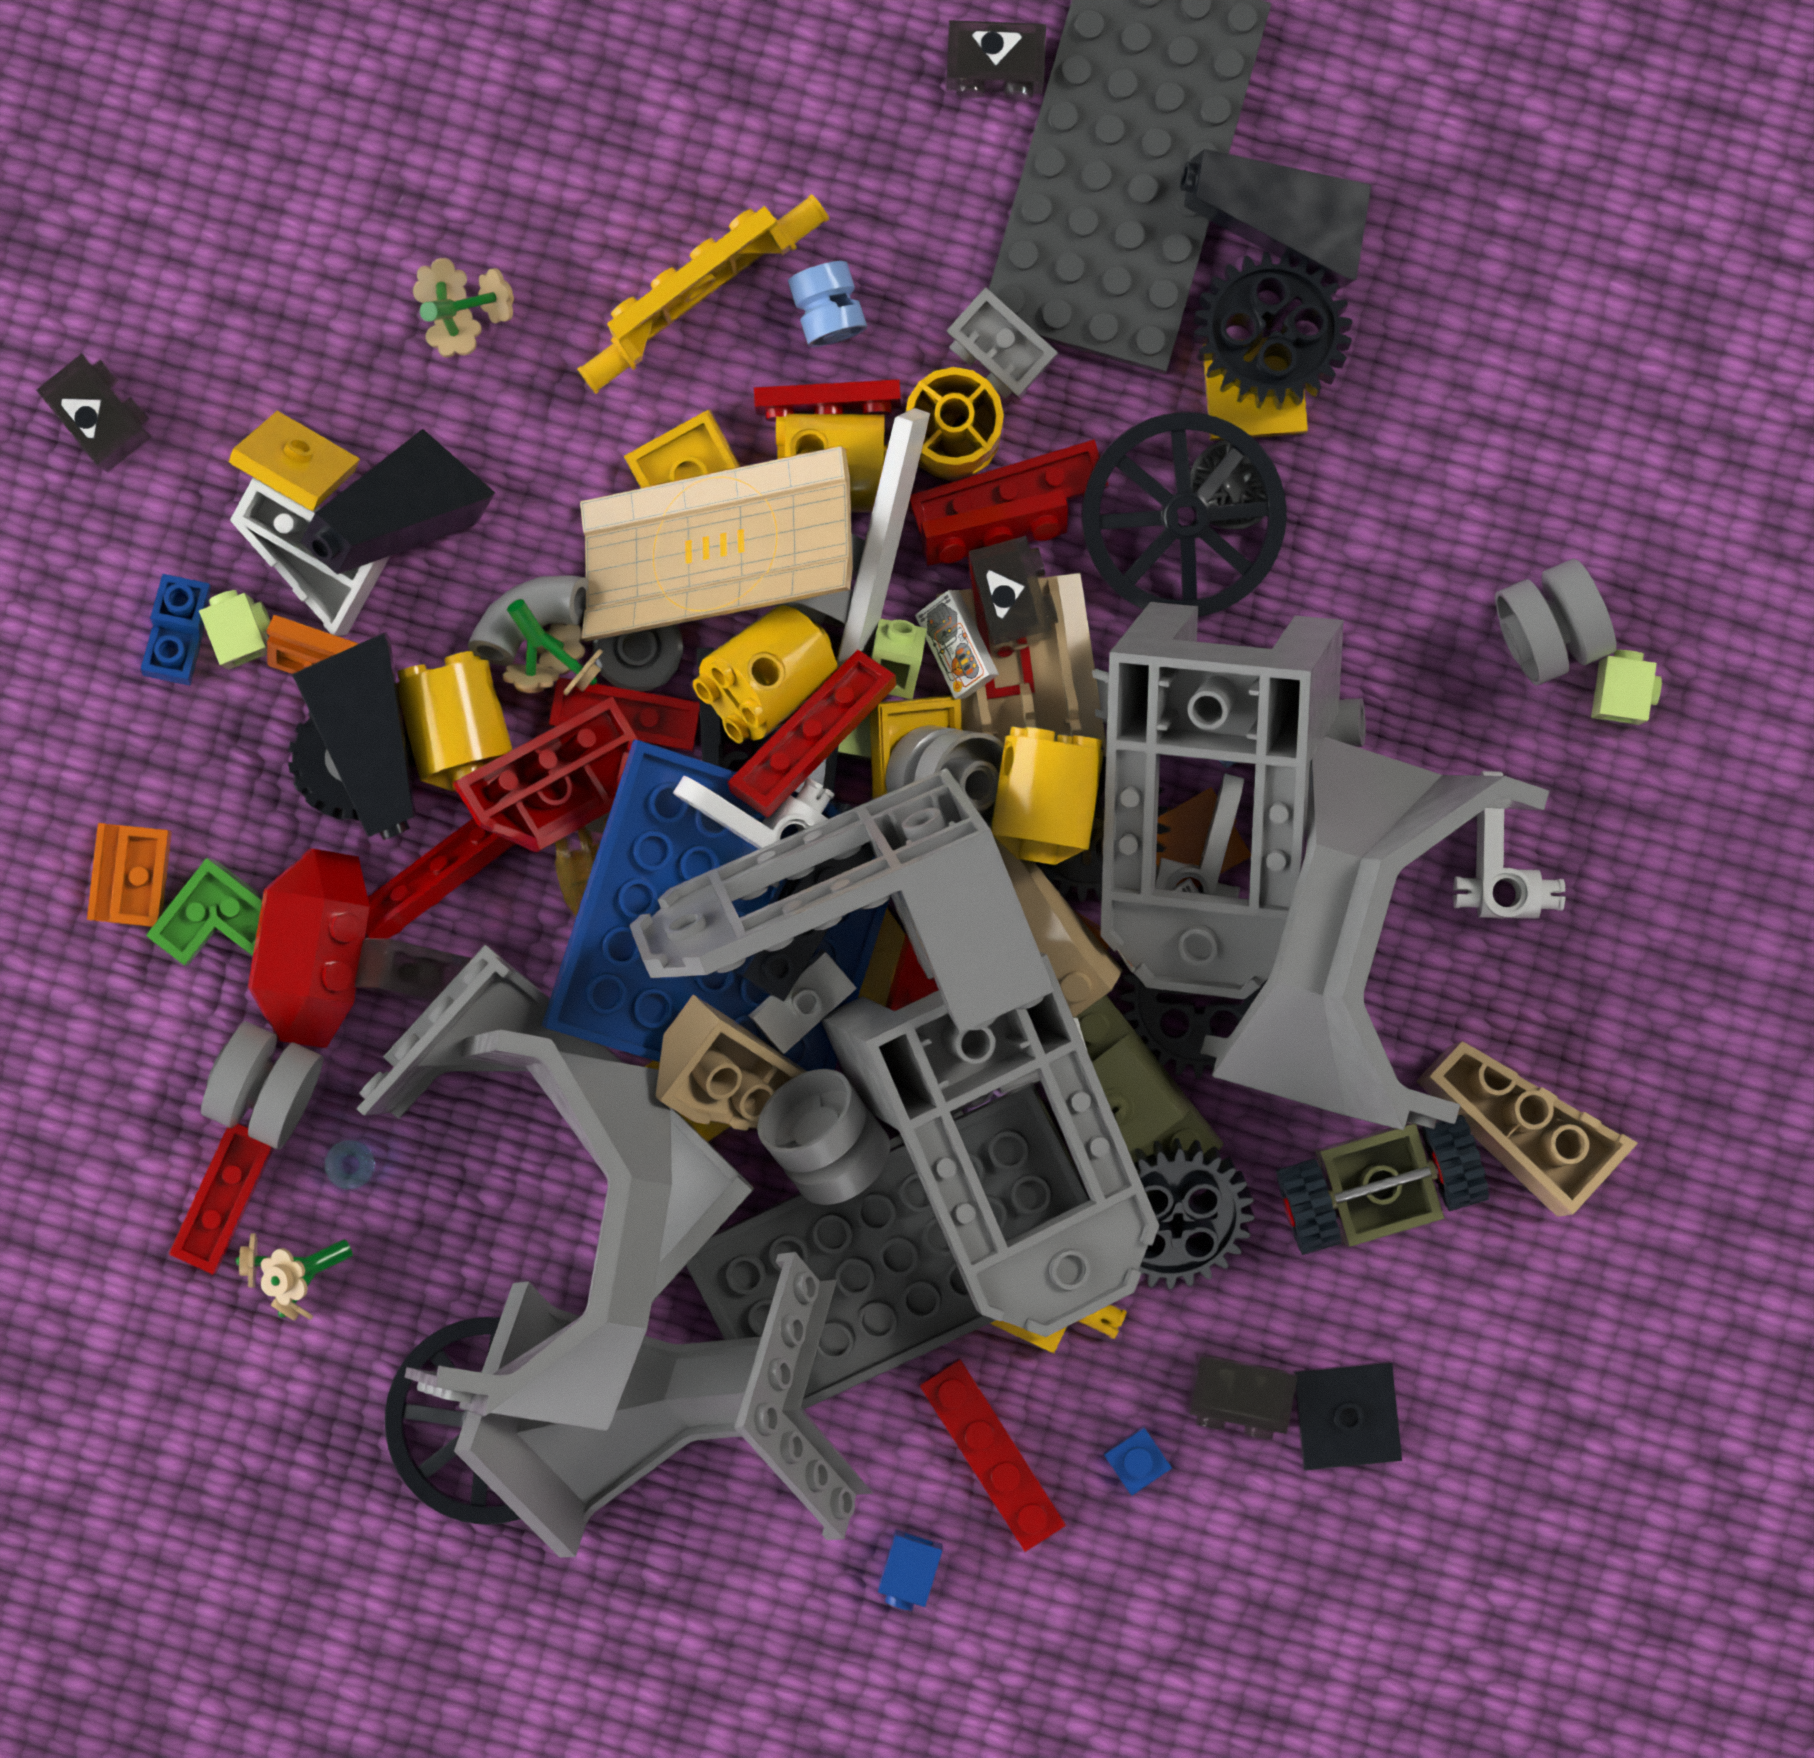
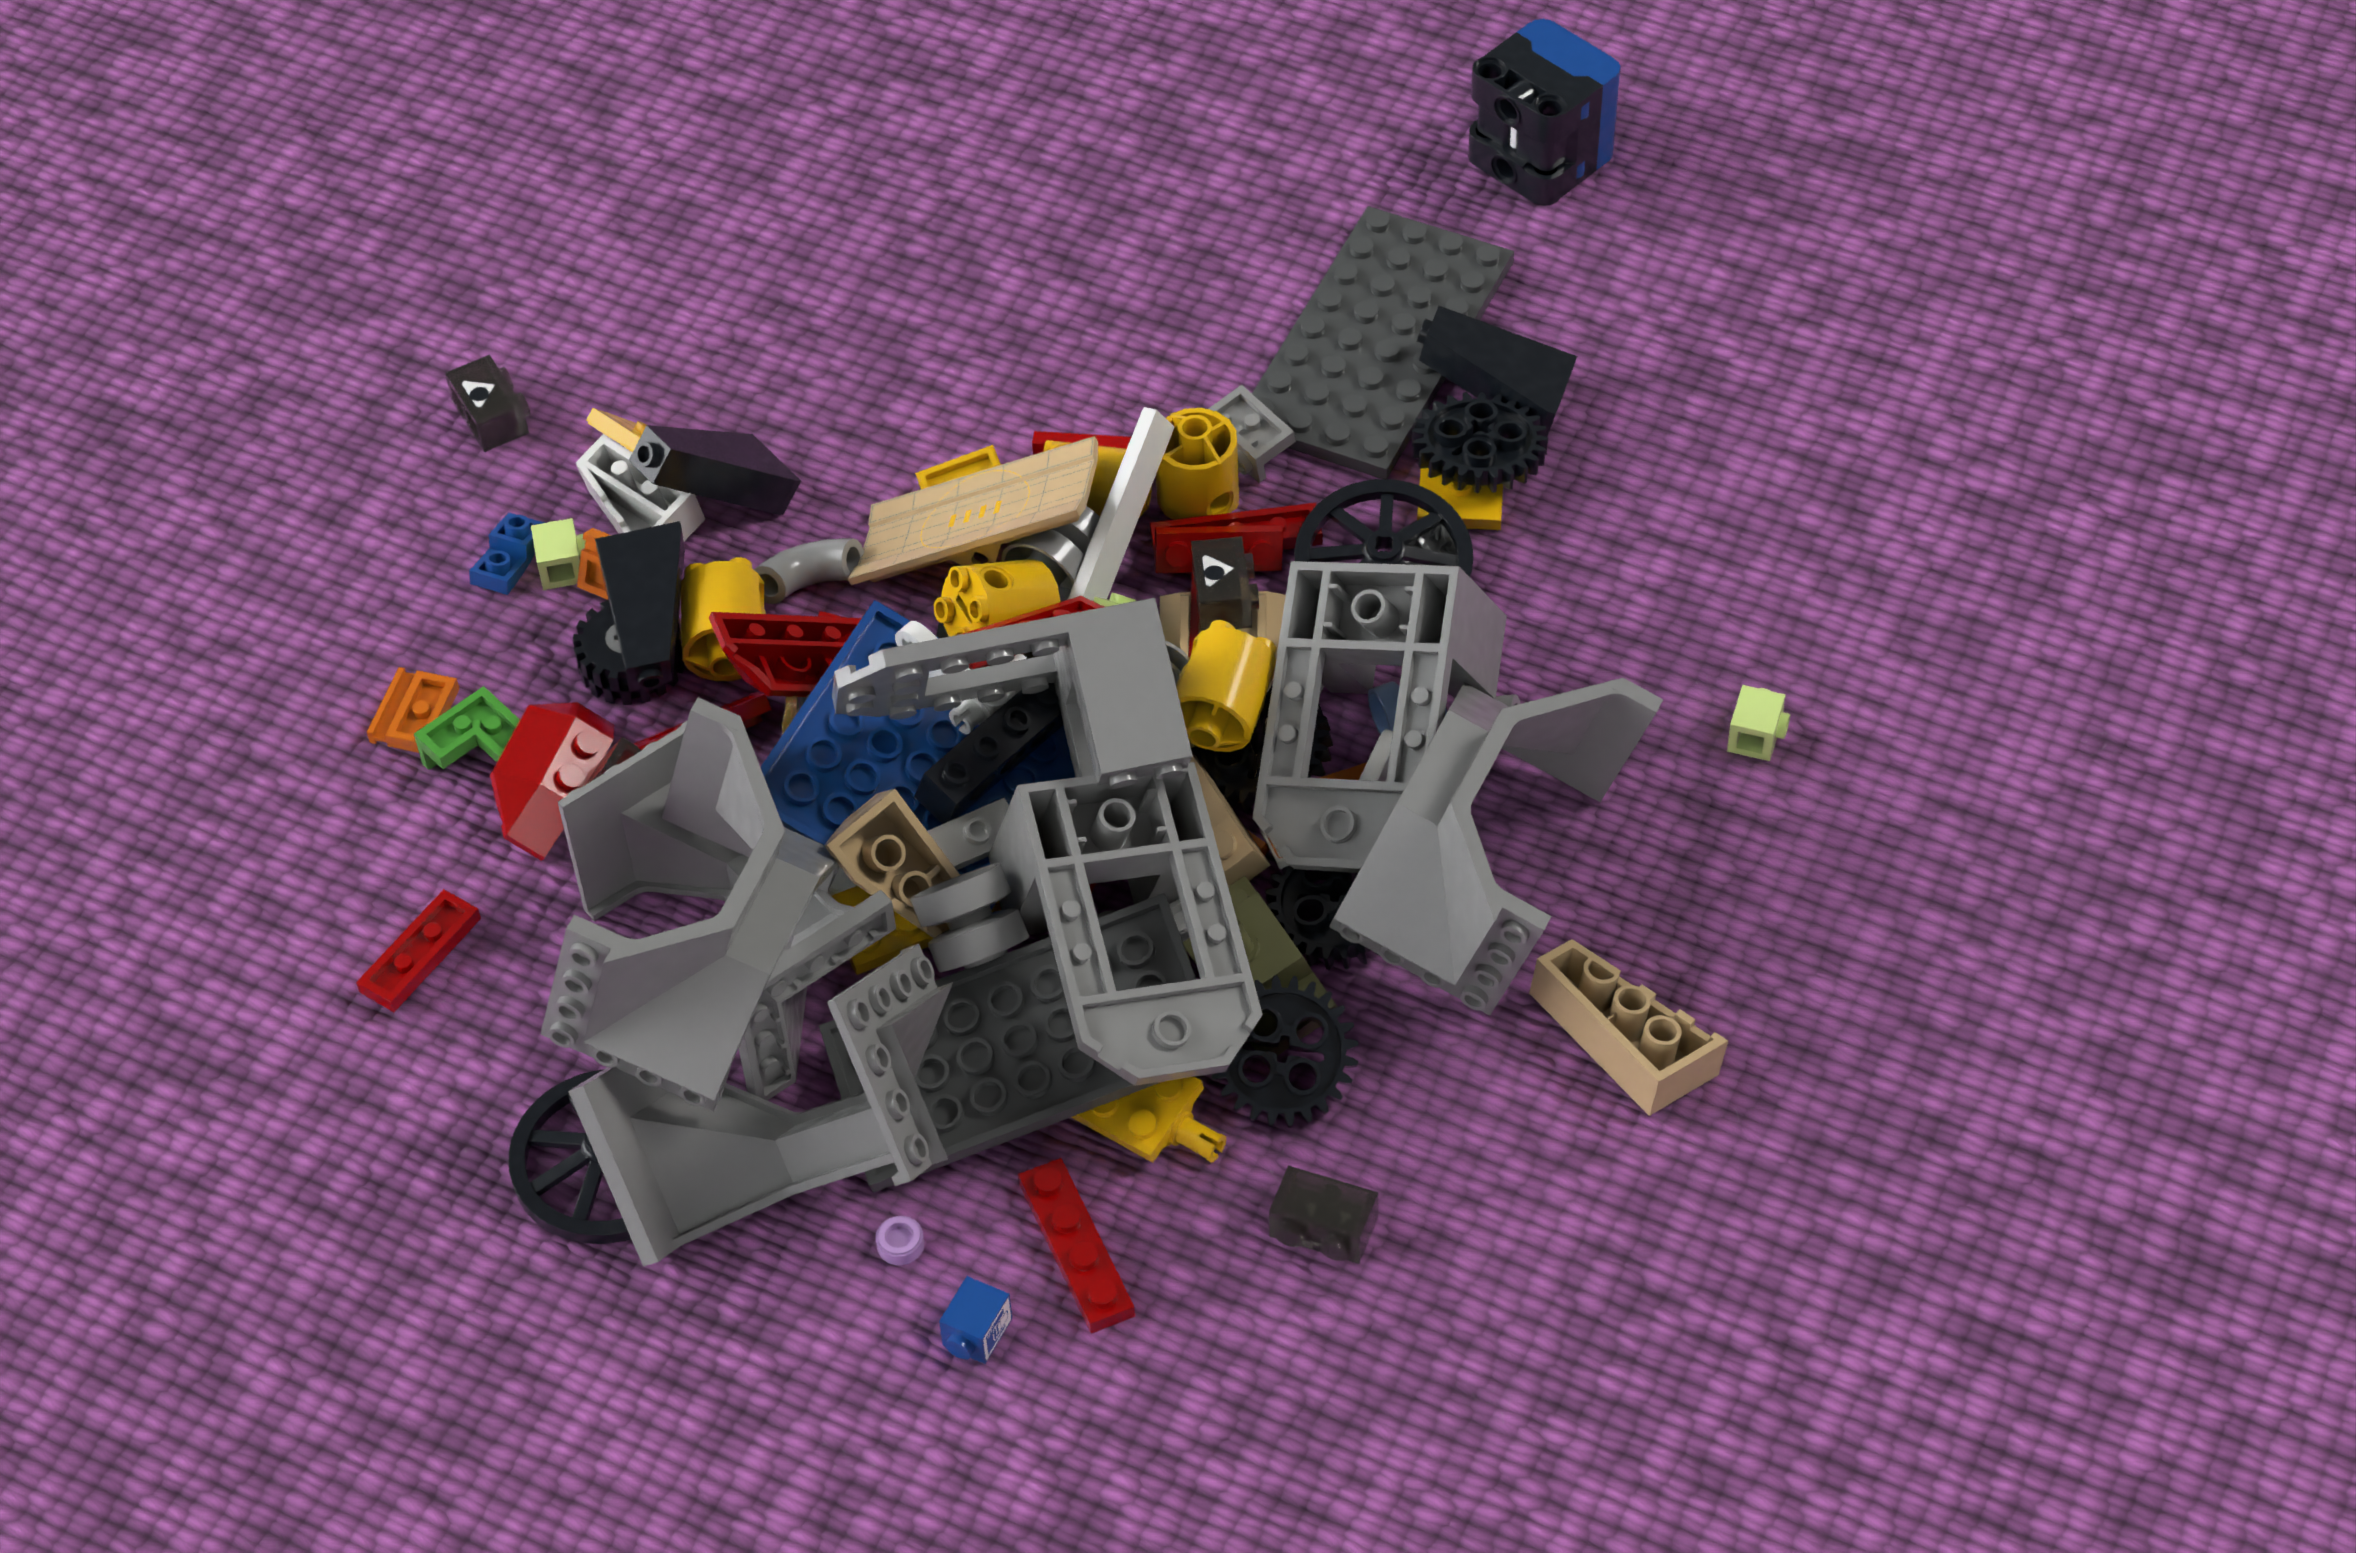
camera: 10 degrees right, 35 degrees down
(248, 1078) = (480, 855): light grey wheel -> none
(287, 1275) = (454, 991): tan plant -> none
(334, 1167) = (539, 932): clear light blue plate -> none
(446, 304) = (796, 361): tan plant -> none
(559, 651) = (830, 597): tan plant -> none
(640, 658) = (901, 594): dark grey wheel -> none
(681, 290) = (1003, 361): yellow plate -> none
(827, 303) = (1109, 393): light blue wheel -> none
(957, 644) = (1175, 615): tile -> none
(996, 59) = (1281, 259): clear smoke brick -> none
(1137, 1460) = (1214, 1266): blue plate -> none
(1347, 1415) = (1424, 1254): black plate -> none
(1381, 1184) = (1482, 1049): brick -> none
(1530, 889) = (1630, 851): white piece -> none
(1567, 617) = (1697, 655): light grey wheel -> none

